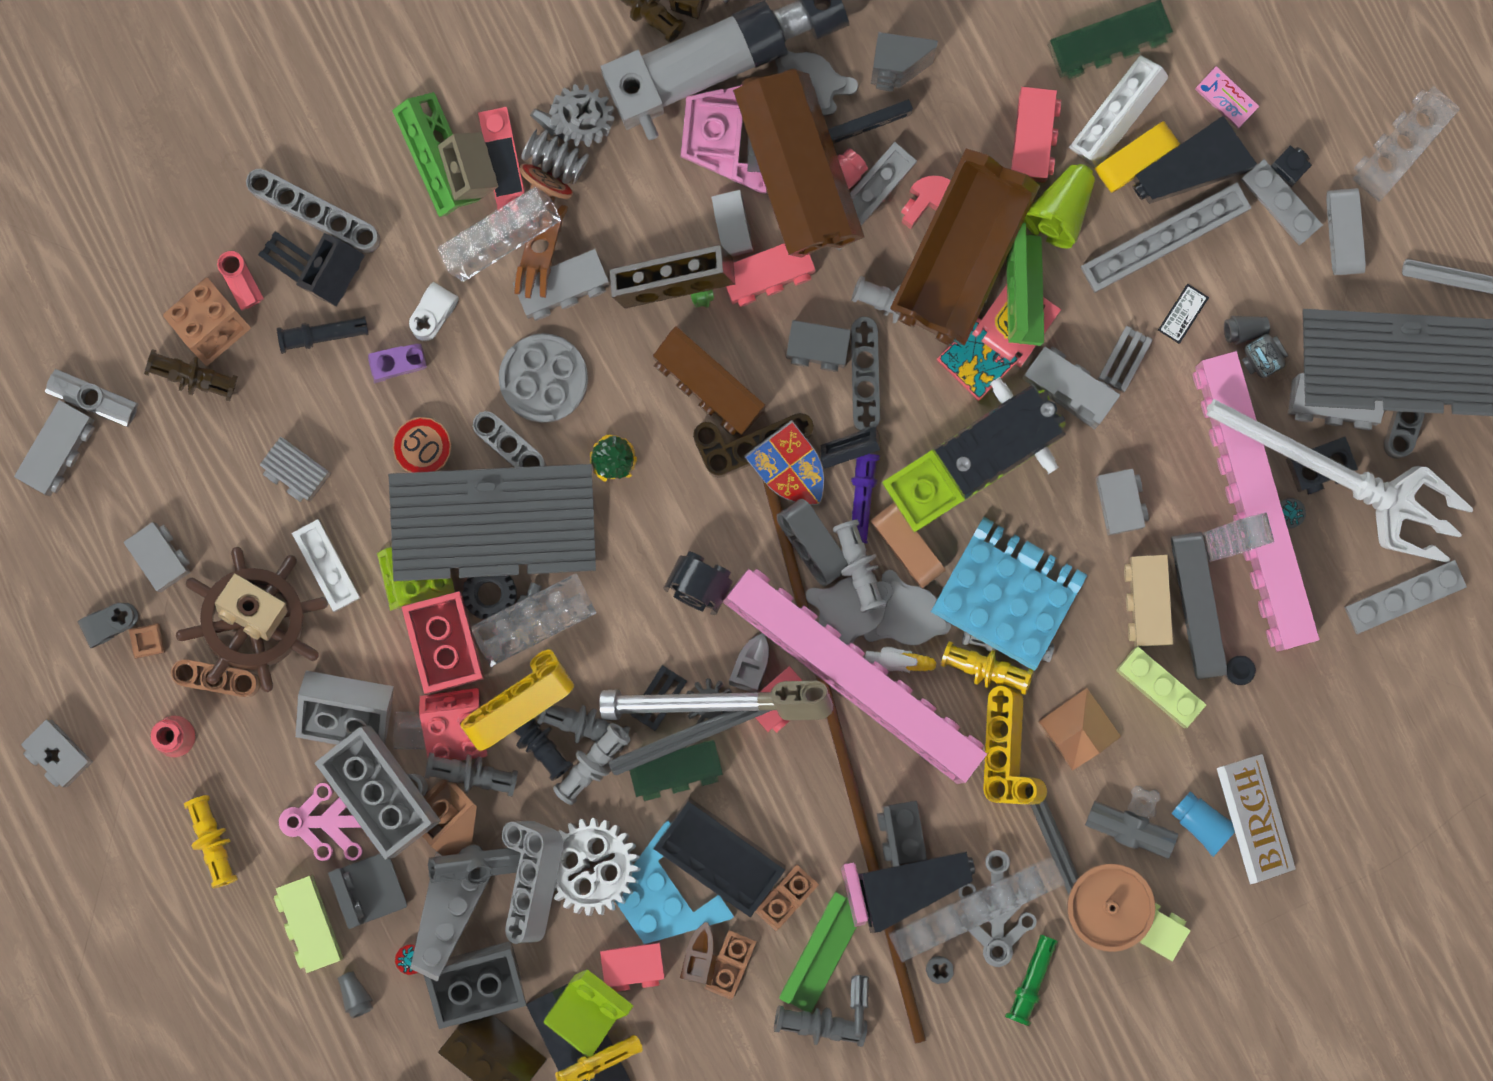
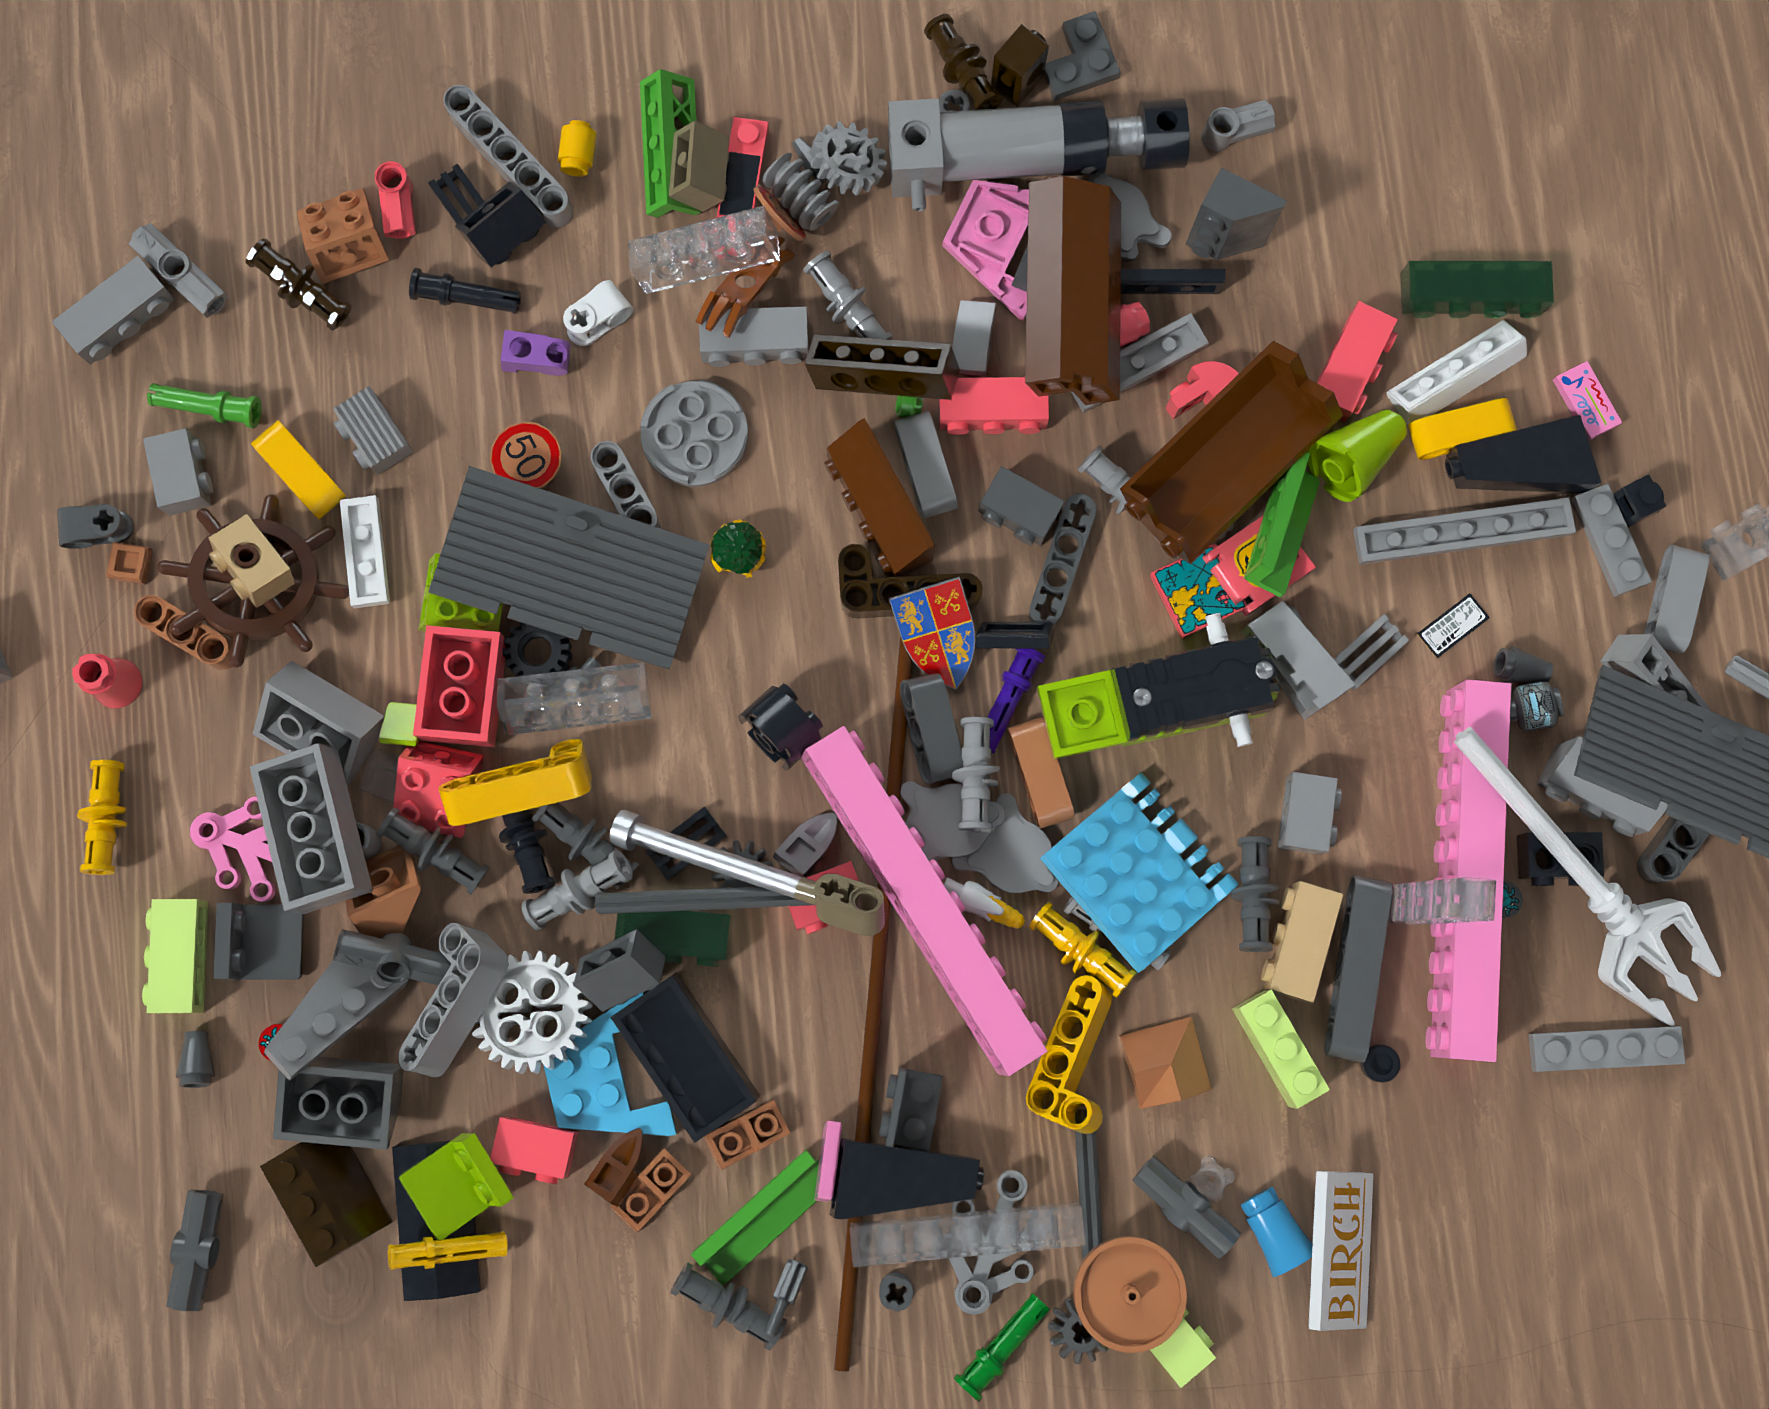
camera: 15 degrees right, 5 degrees down
(169, 493) = (219, 406): none -> bright green pin
(249, 520) = (298, 469): none -> yellow beam
(364, 184) = (576, 148): none -> yellow brick
(408, 688) = (399, 725): none -> lime slope
(624, 231) = (844, 299): none -> light grey piece
(647, 30) = (956, 97): none -> light grey bush
(647, 811) = (619, 970): none -> dark grey brick
(732, 338) = (925, 464): none -> light grey beam
(1076, 953) = (1067, 1335): none -> dark grey gear
(1101, 578) = (1254, 894): none -> dark grey piece
(1335, 292) = (1648, 662): none -> light grey slope

